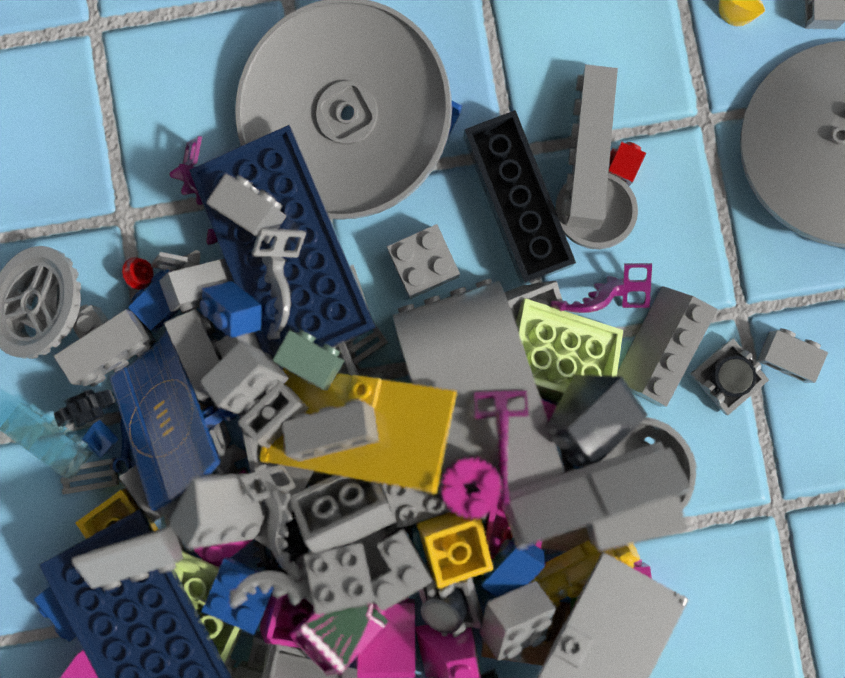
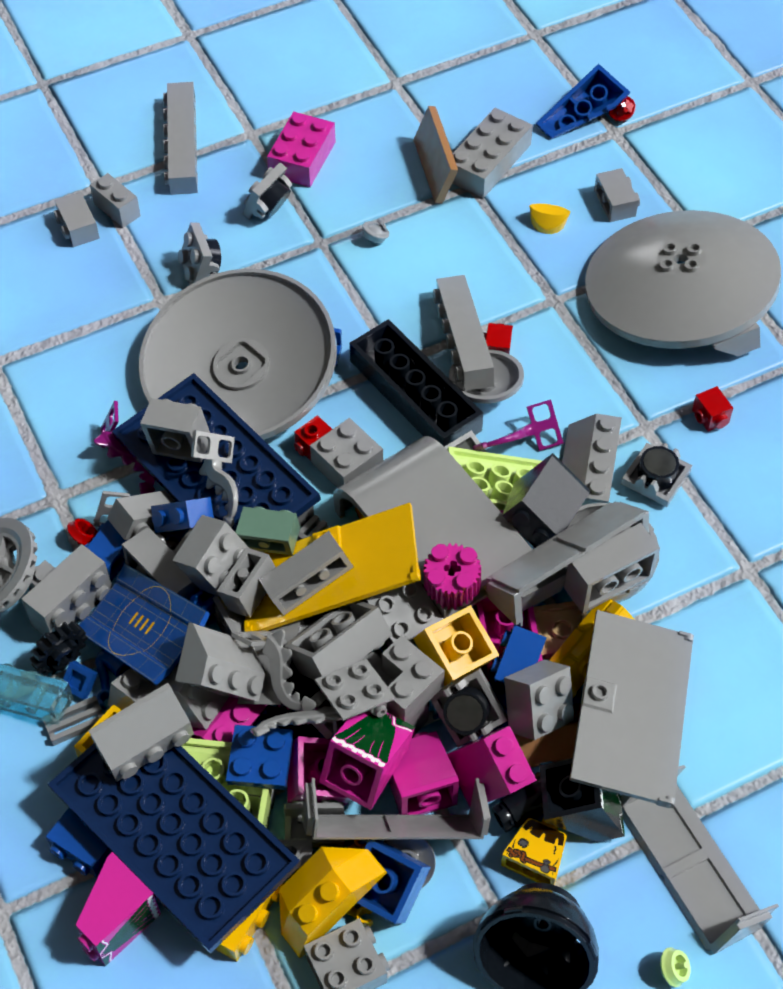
camera: 15 degrees left, 30 degrees down
(395, 228) = (309, 434): none -> red brick
(501, 417) = (462, 520): magenta piece -> none
(792, 356) = (705, 443): light grey brick -> none
(817, 317) = (712, 409): none -> red brick

